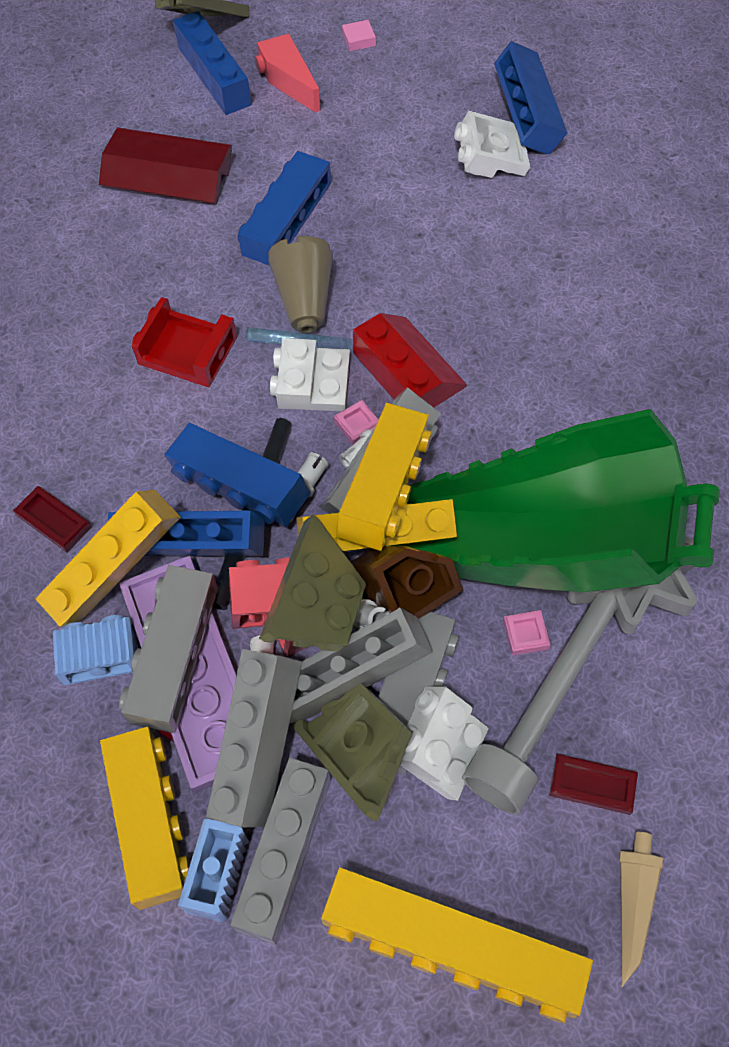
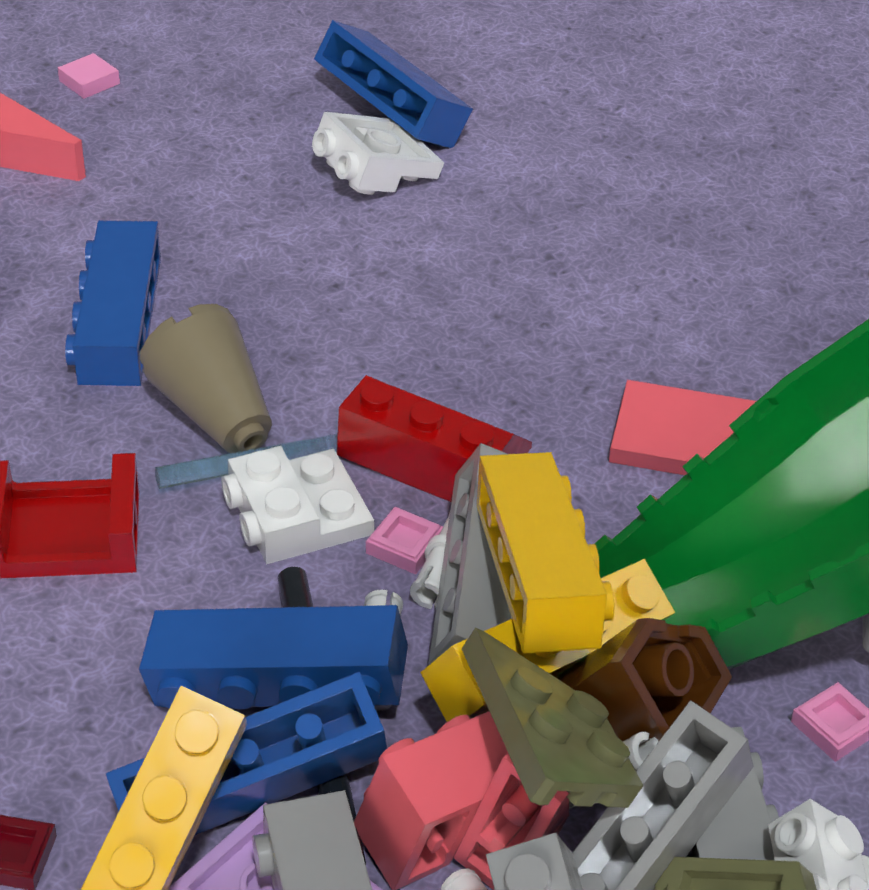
camera: 30 degrees left, 20 degrees down
(557, 402) = (670, 425): none -> coral tile

